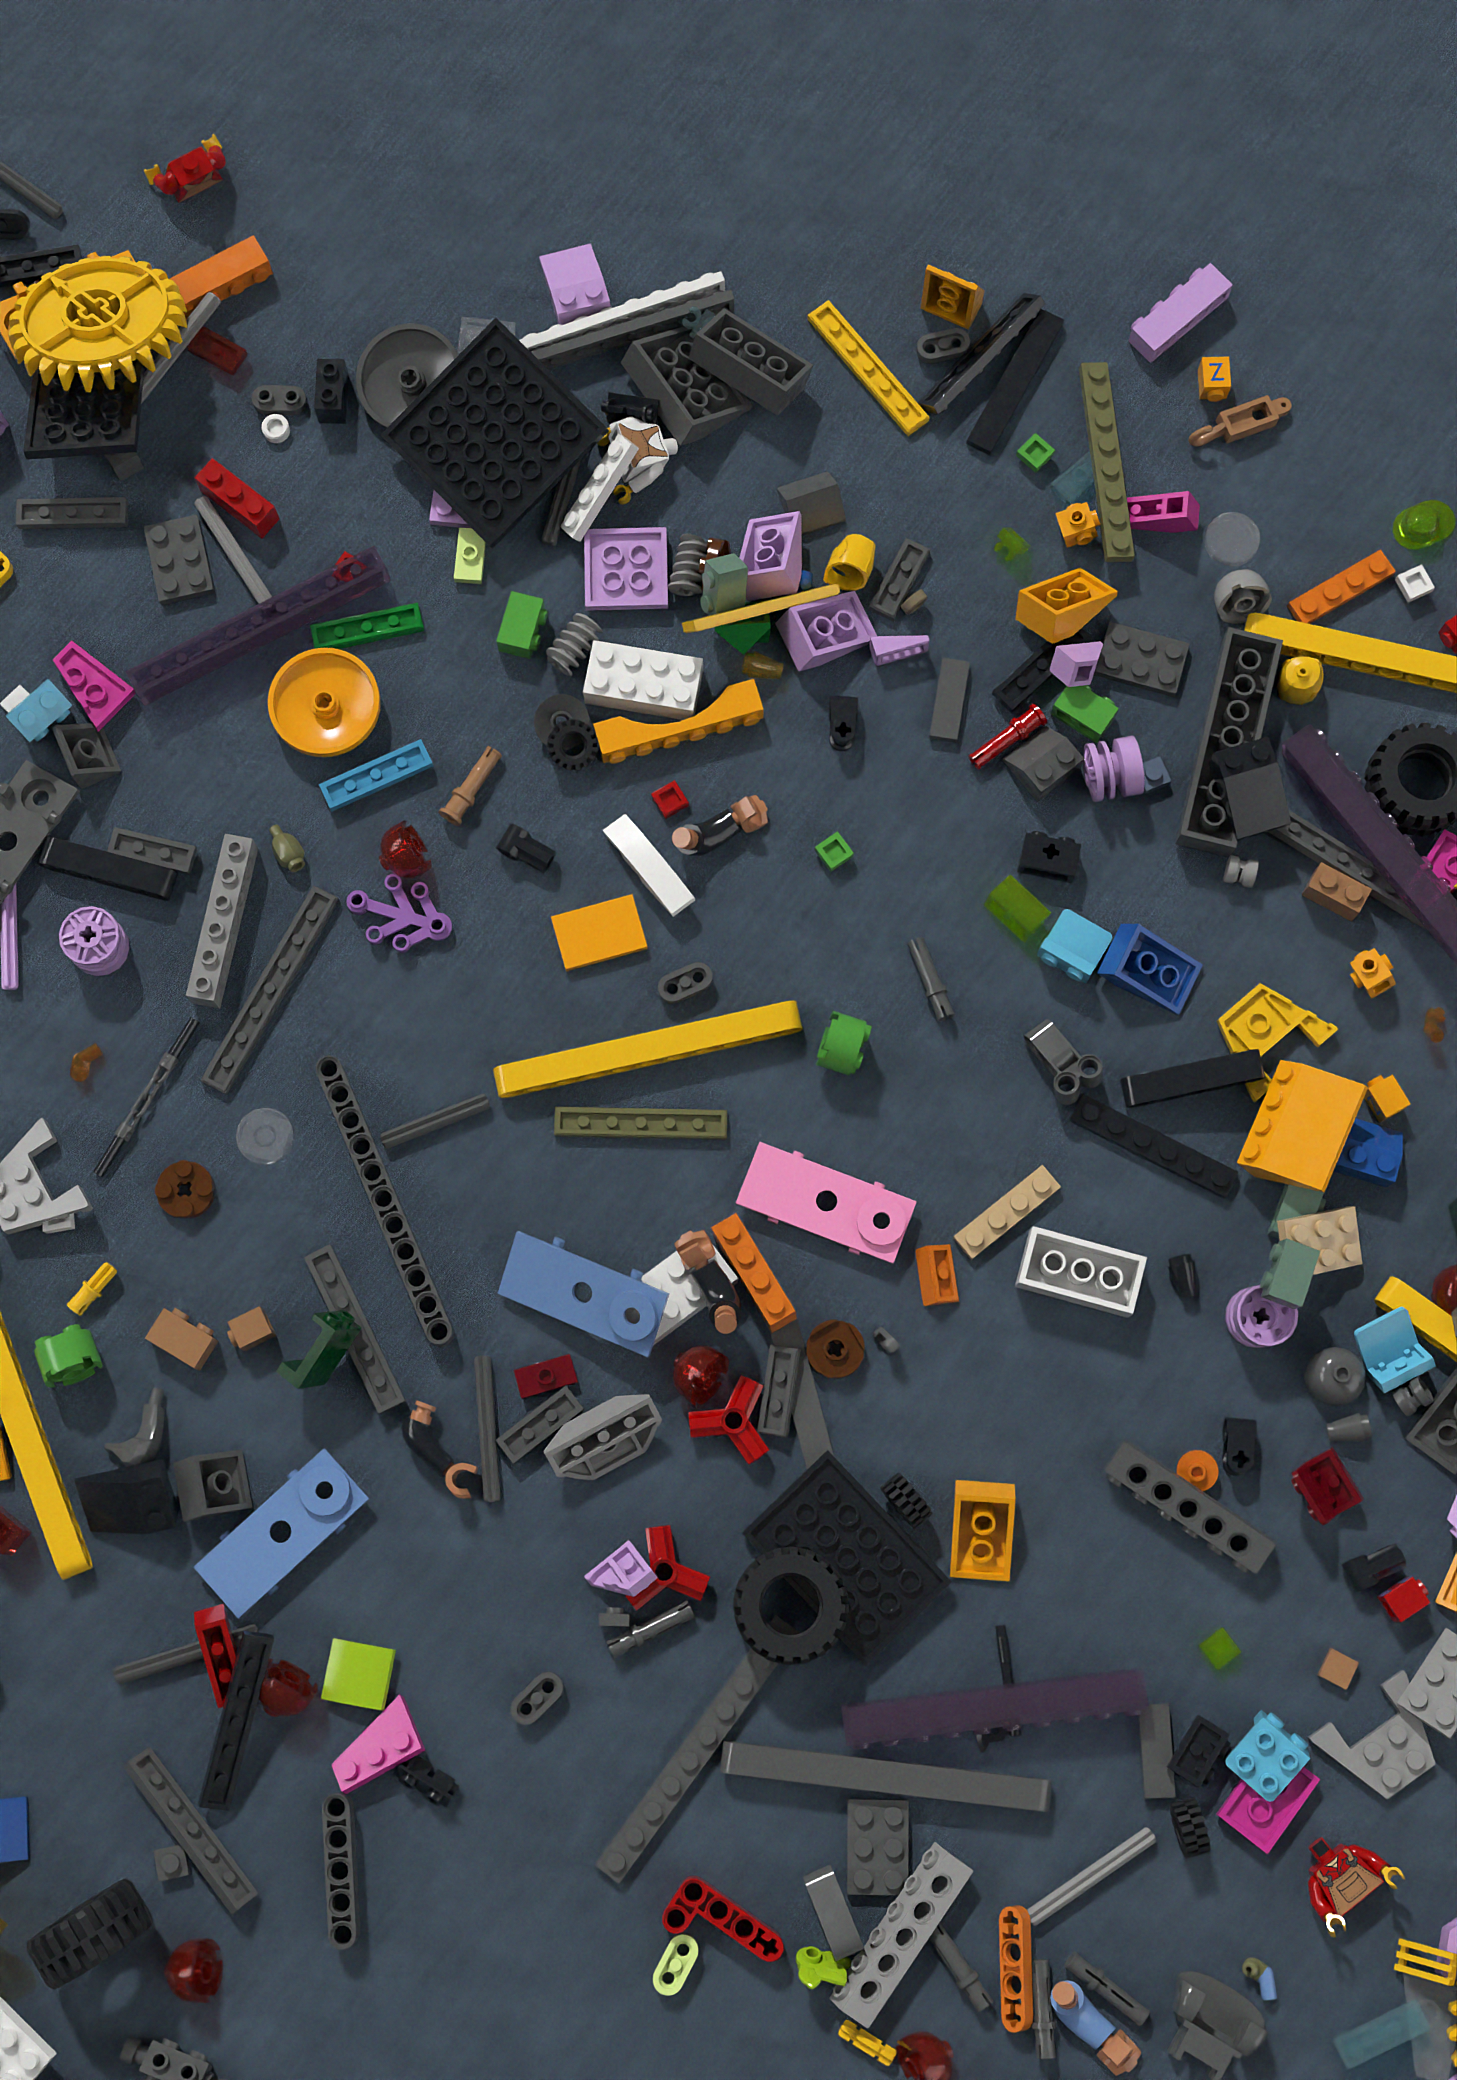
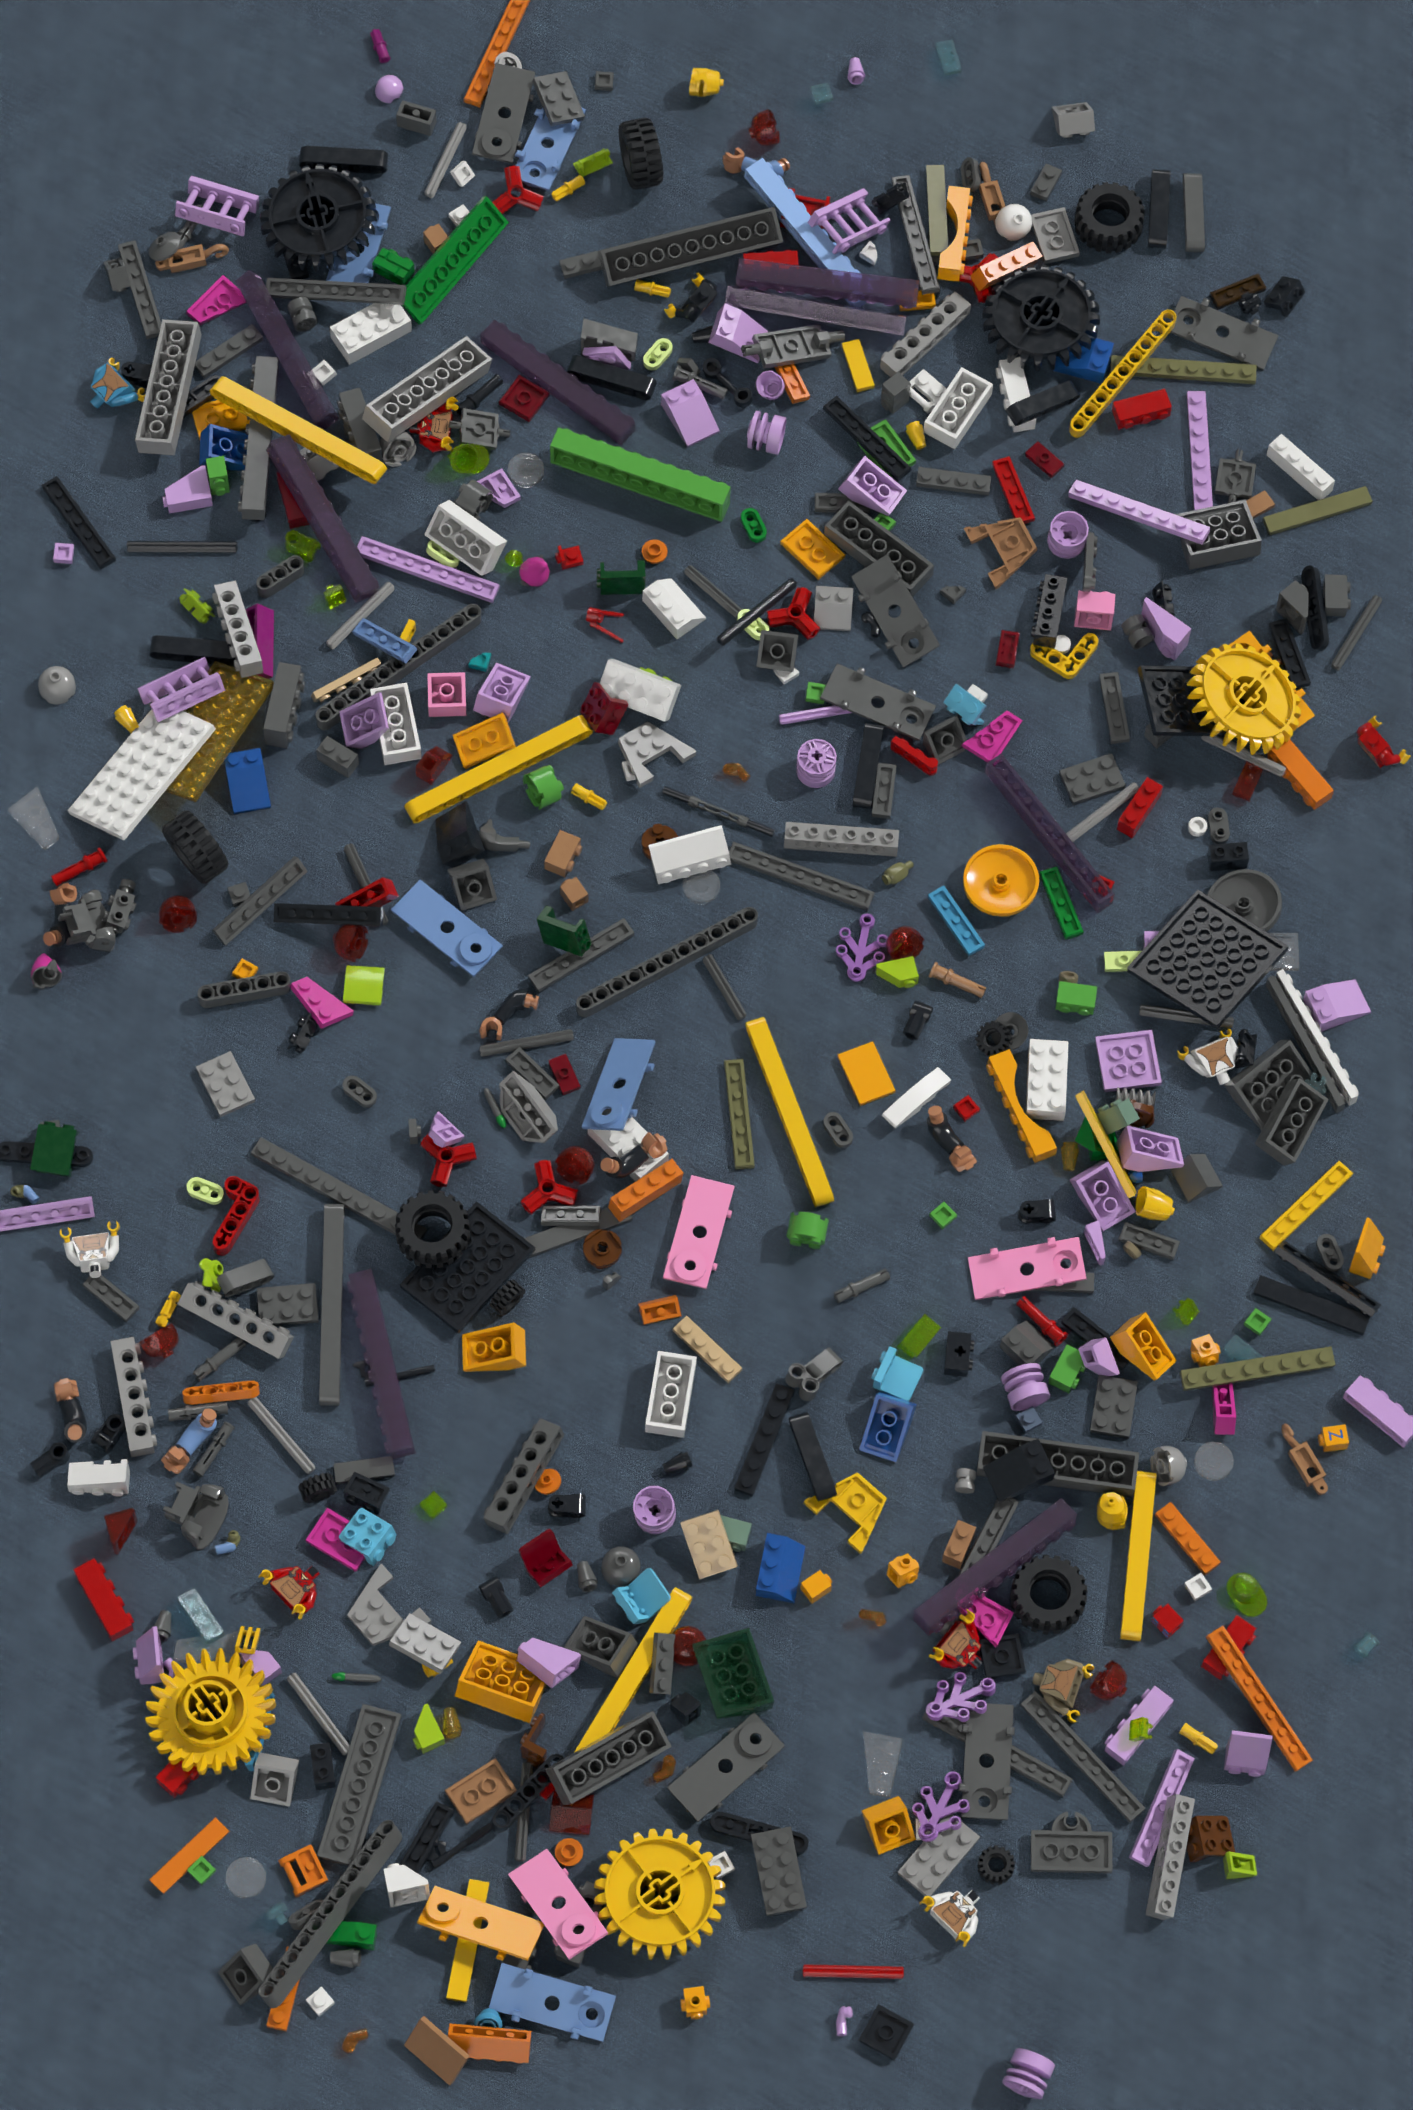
camera: 80 degrees right, 10 degrees down
(103, 800) = (914, 756): none -> red plate
(219, 1144) = (689, 854): none -> white slope
(306, 1865) = (244, 969): none -> light orange tile
(448, 863) = (899, 972): none -> lime slope
(488, 631) = (1068, 976): none -> dark tan tile
(496, 1914) = (225, 1084): none -> light grey plate
(572, 642) = (1065, 1032): light grey piece -> none
(588, 1488) = (494, 1107): none -> dark grey piece
(599, 487) = (1180, 1032): white plate -> none
(646, 1631) = (407, 1151): dark grey pin -> none
(933, 785) = (1000, 1271): none -> bright pink piece
(1289, 1273) = (681, 1512): sand green brick -> none
(1301, 1126) = (787, 1523): light orange slope -> none
(1338, 1668) = (427, 1580): medium nougat tile -> none
(1404, 1598) = (477, 1617): red brick -> none
(1412, 1396) = (609, 1610): dark grey wheel -> none

